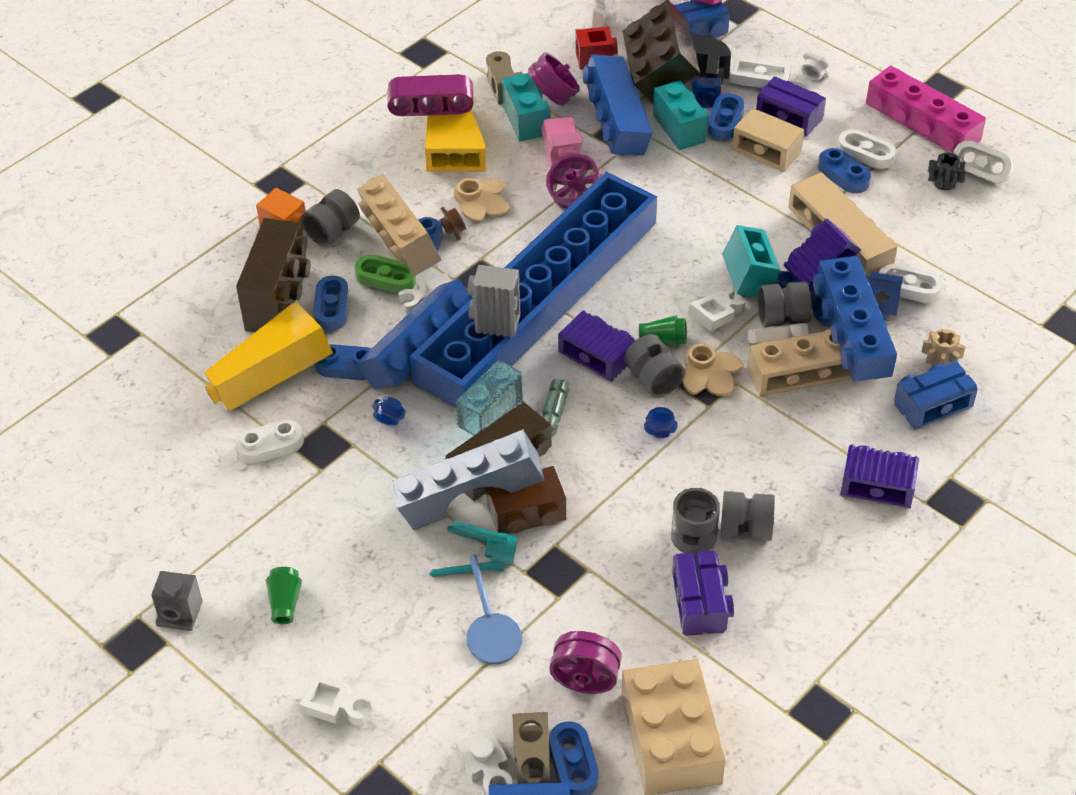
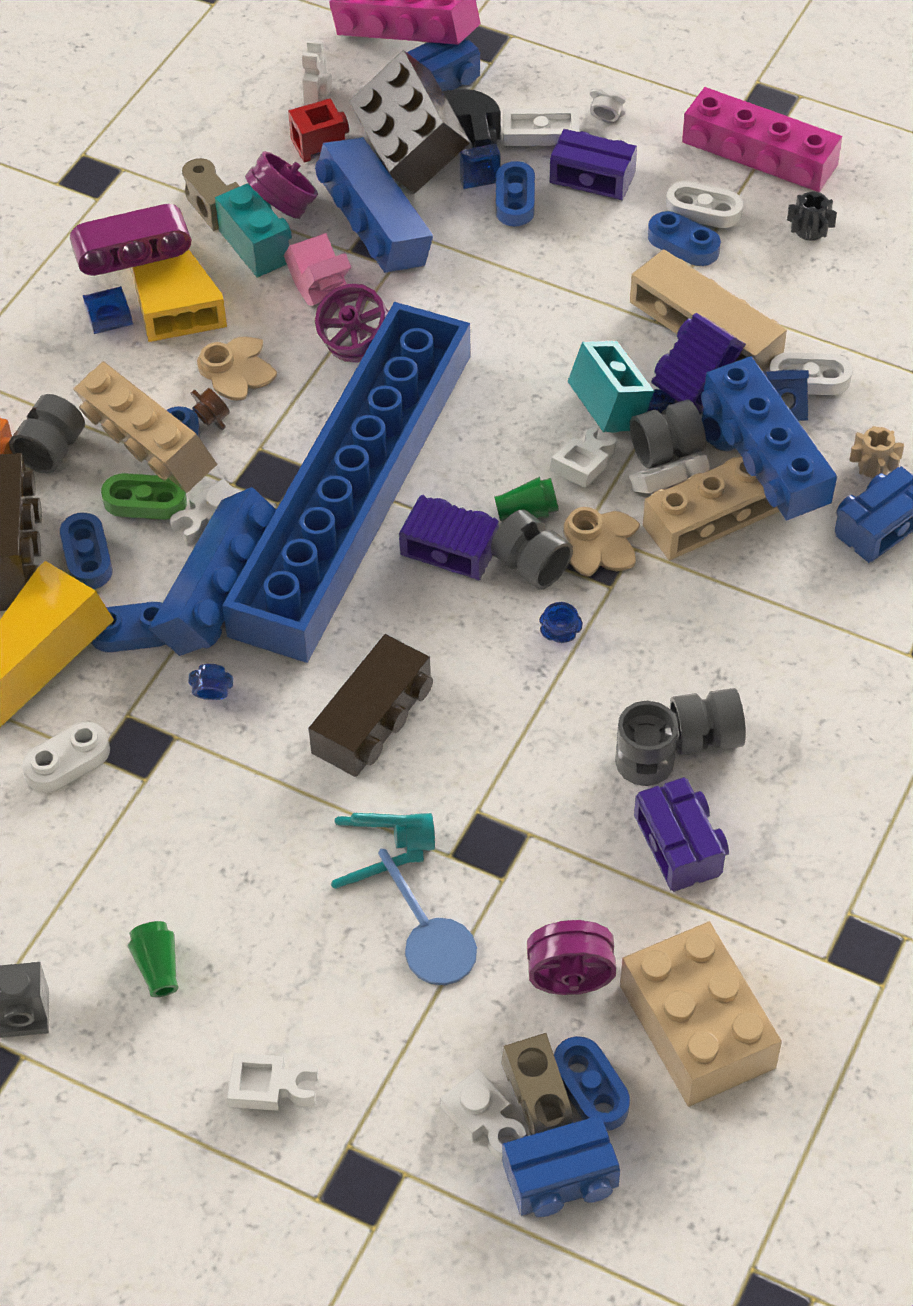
camera: 15 degrees left, 5 degrees up
(403, 143) = (107, 310): none -> clear blue plate
(489, 397) = (337, 638): clear light blue brick -> none
(495, 300) = (317, 509): light grey brick -> none
(504, 464) = (389, 726): sand blue arch -> none
(528, 507) = (426, 763): reddish brown brick -> none
(555, 403) = (419, 623): sand green axle -> none
(680, 115) = (458, 203): teal brick -> none
(768, 139) = (578, 215): tan brick -> none
(880, 475) = (849, 633): dark purple brick -> none
(984, 161) = (853, 192): white plate -> none

